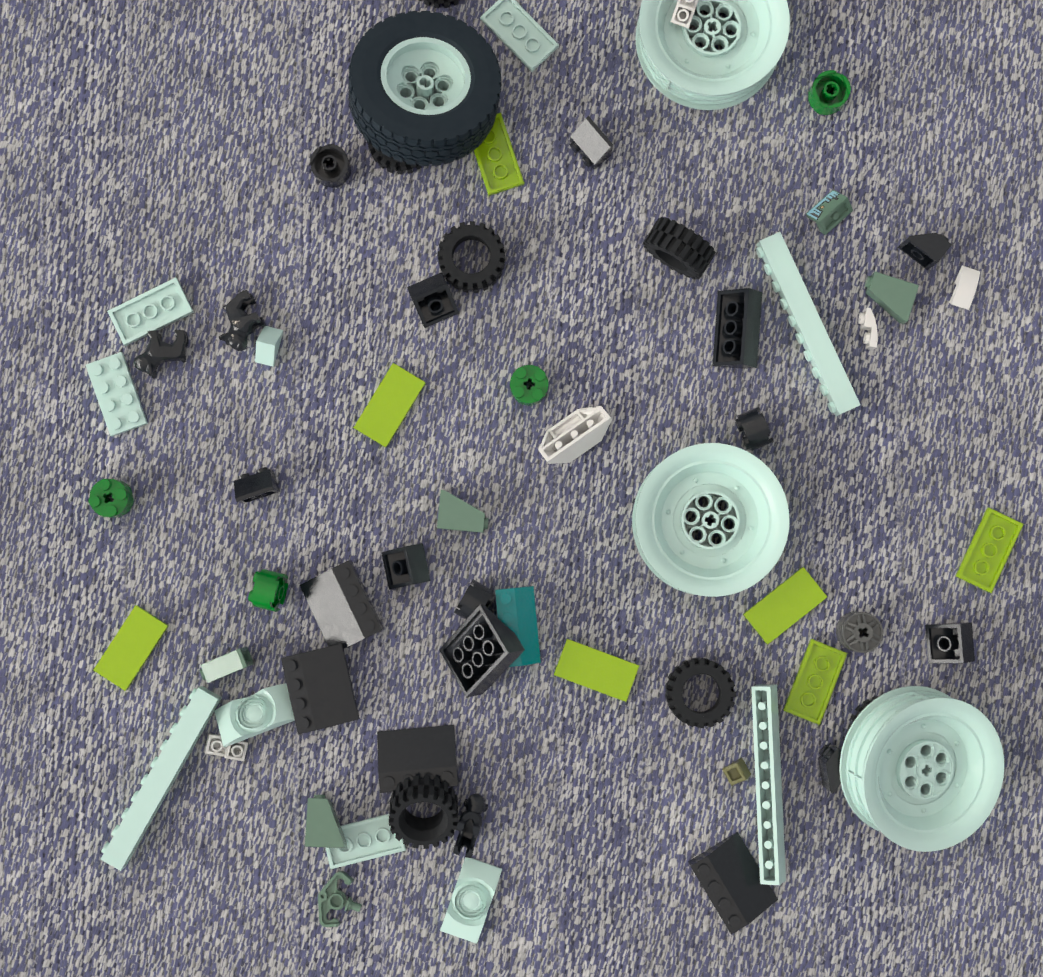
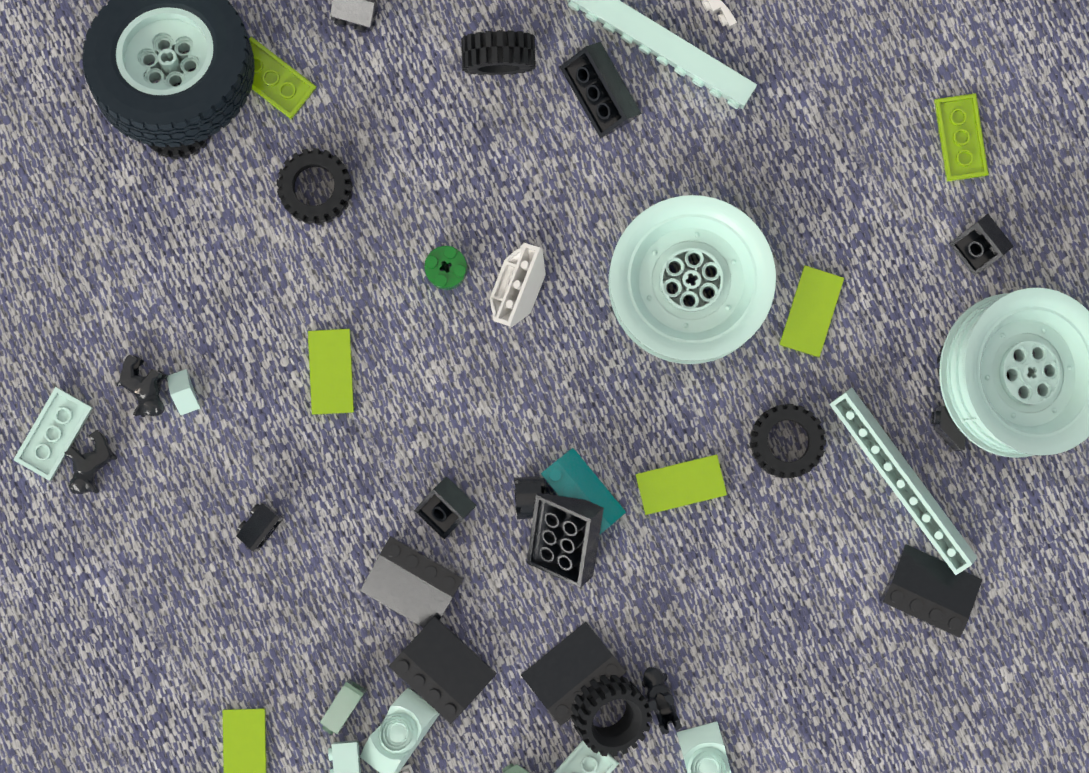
camera: 35 degrees left, 0 degrees up
(102, 504) = (140, 617): green brick -> none
(116, 394) = (73, 530): light aqua plate -> none
(268, 590) = (335, 612): green brick -> none
(329, 155) = (119, 182): black brick -> none
(433, 300) = (305, 249): black slope -> none
(459, 515) = (463, 428): sand green slope -> none
(736, 772) = (869, 490): olive slope -> none
(754, 428) = (676, 170): black brick -> none
(815, 681) = (884, 361): lime tile -> none
(850, 637) = (883, 297): dark grey wheel -> none

